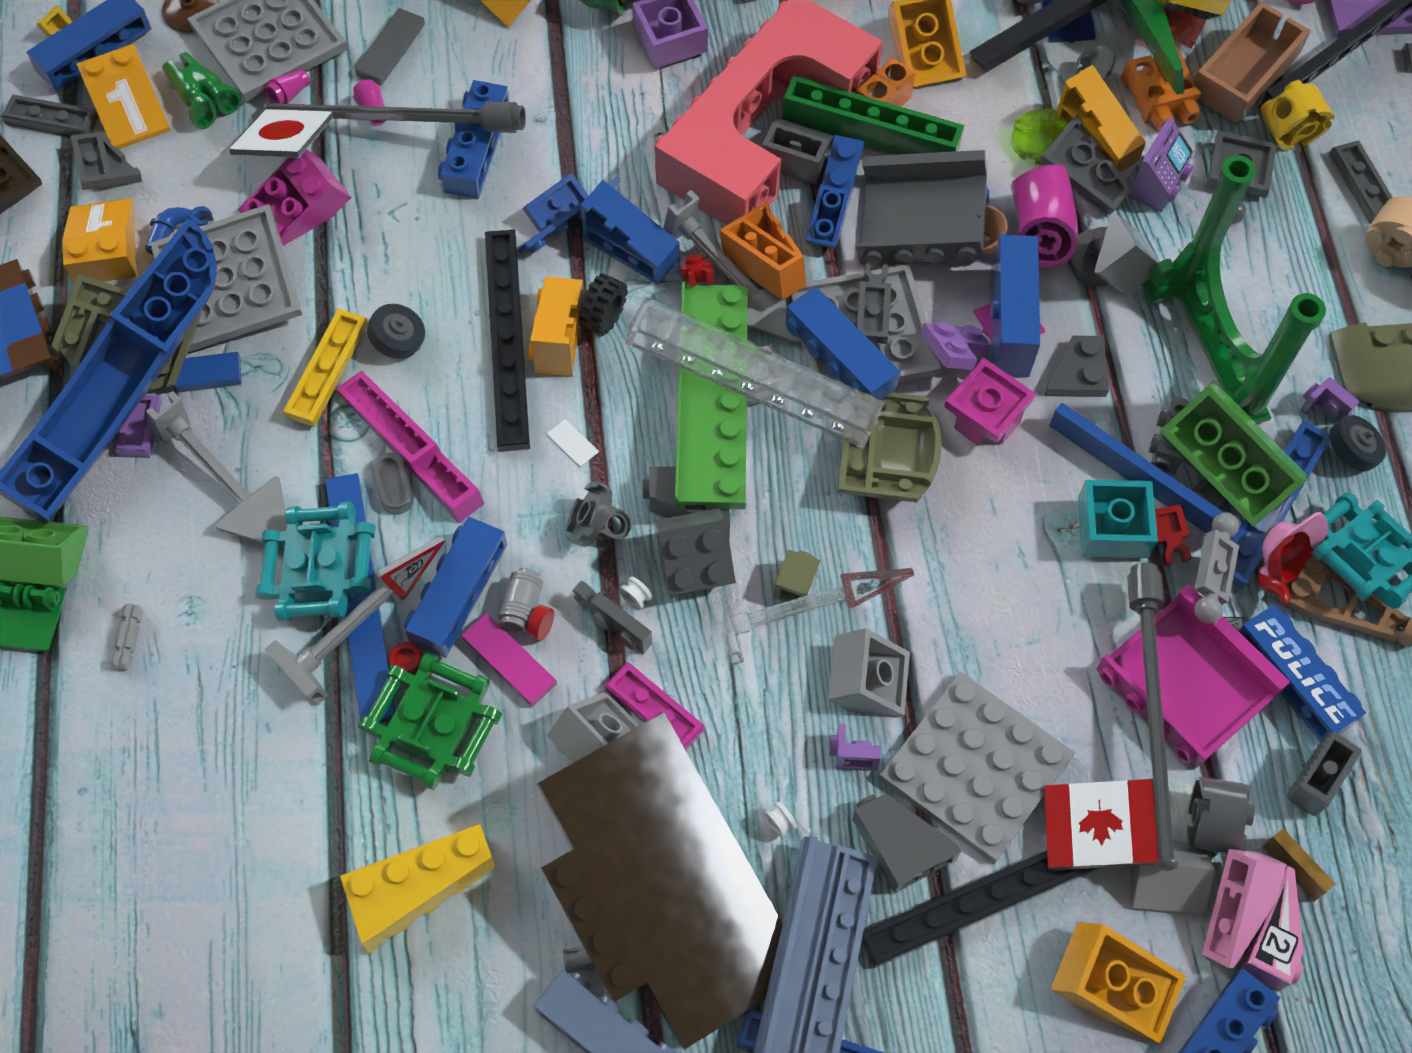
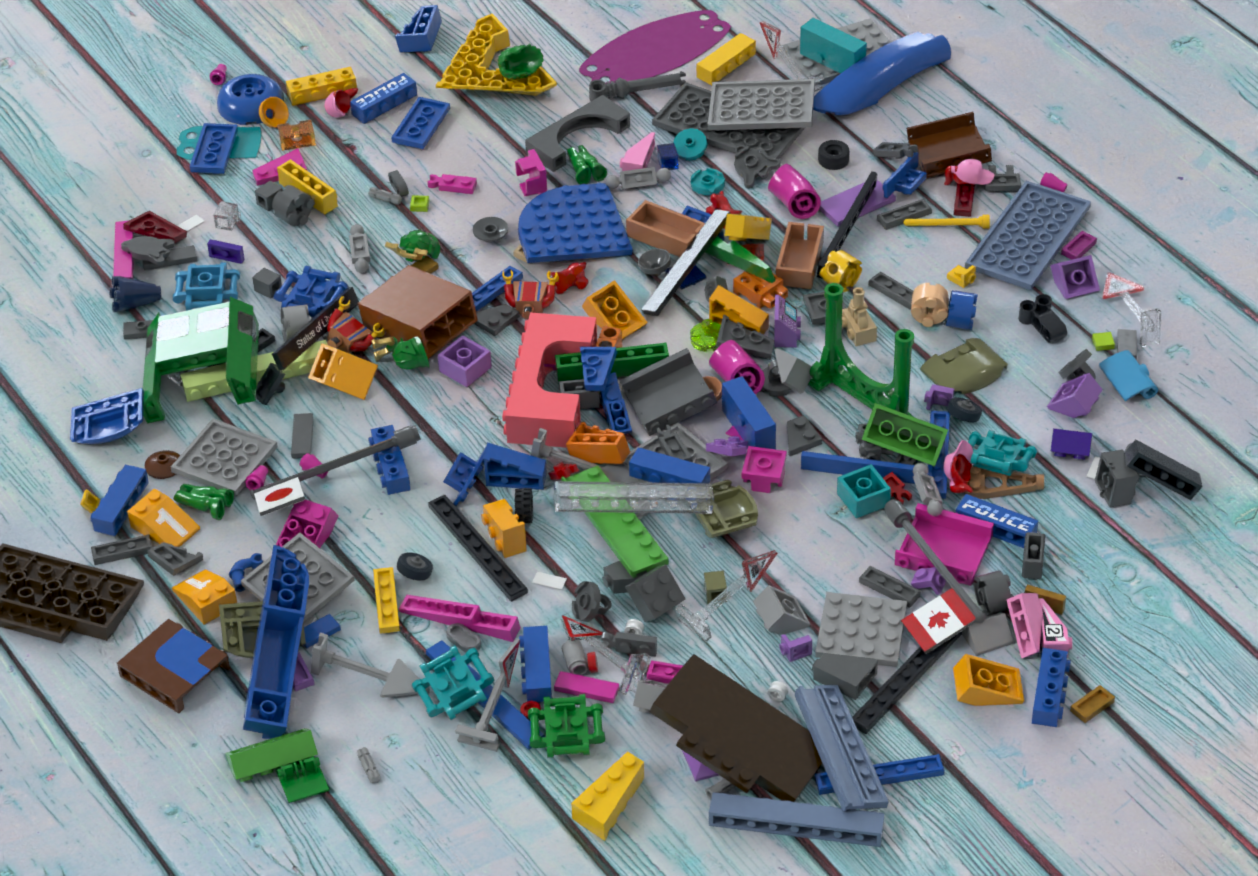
camera: 25 degrees left, 20 degrees down
(555, 560) = (633, 670): none -> clear piece
(838, 121) = (597, 366): none -> blue wing
(1065, 708) = (889, 586): none -> dark grey tile
(1129, 727) = (928, 578): none -> medium lavender bracket
(1276, 213) = (857, 321): none -> tan brick

